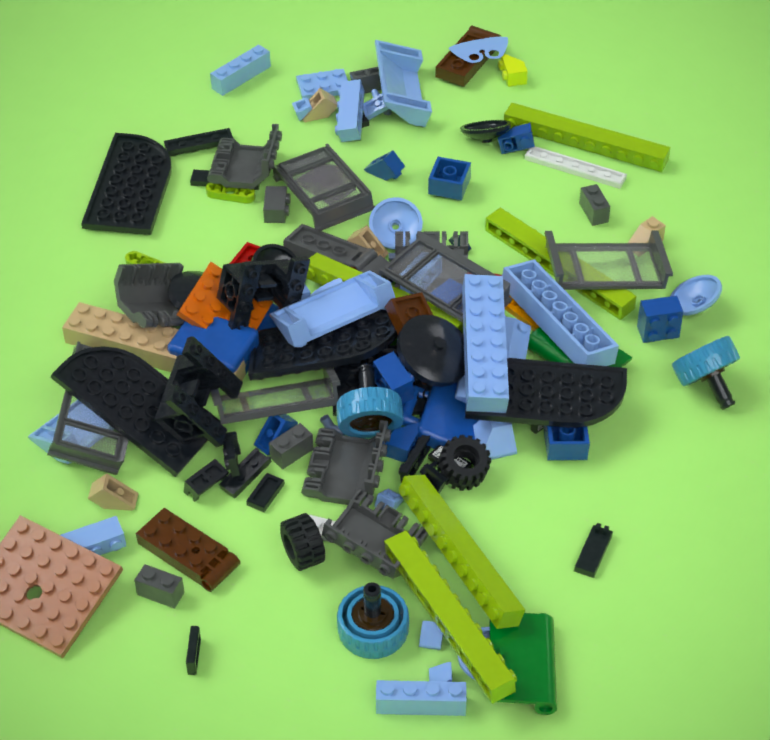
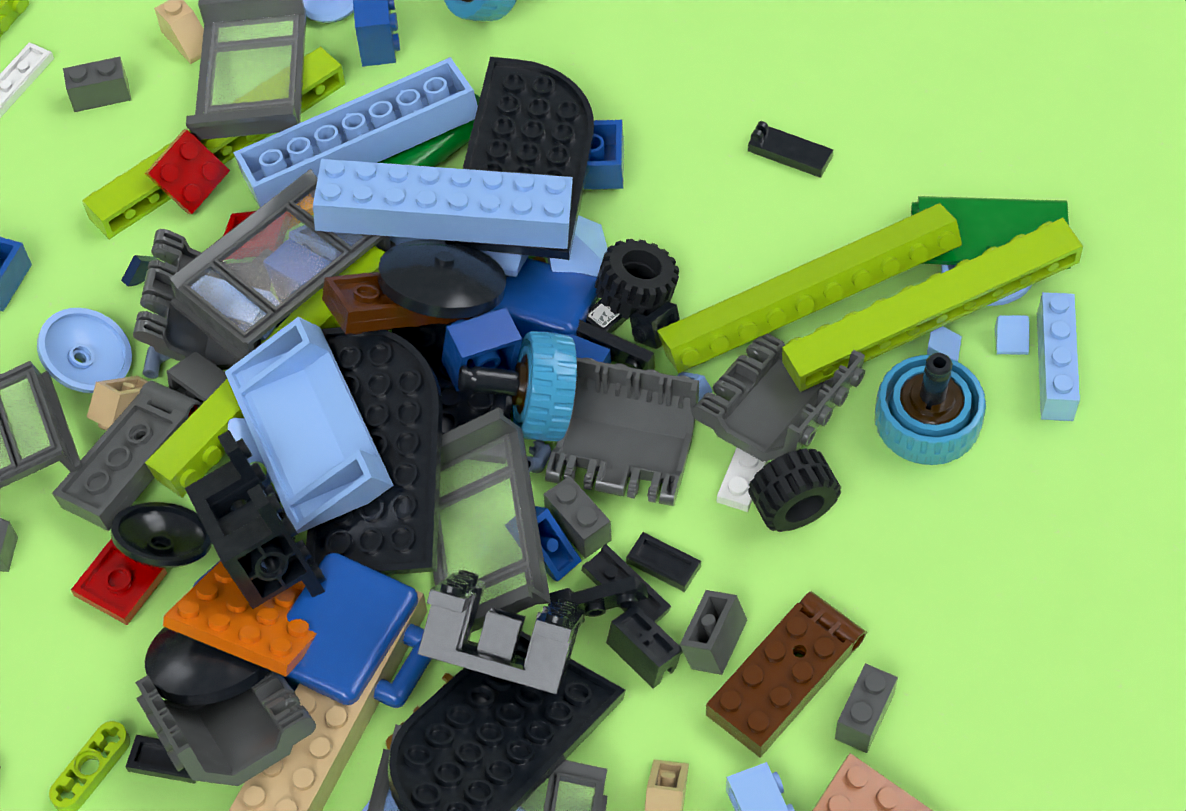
camera: 85 degrees left, 10 degrees up
(193, 650) = (987, 655): black tile -> none
(210, 509) = (713, 632): none -> dark grey brick
(525, 246) = (187, 171): none -> red plate

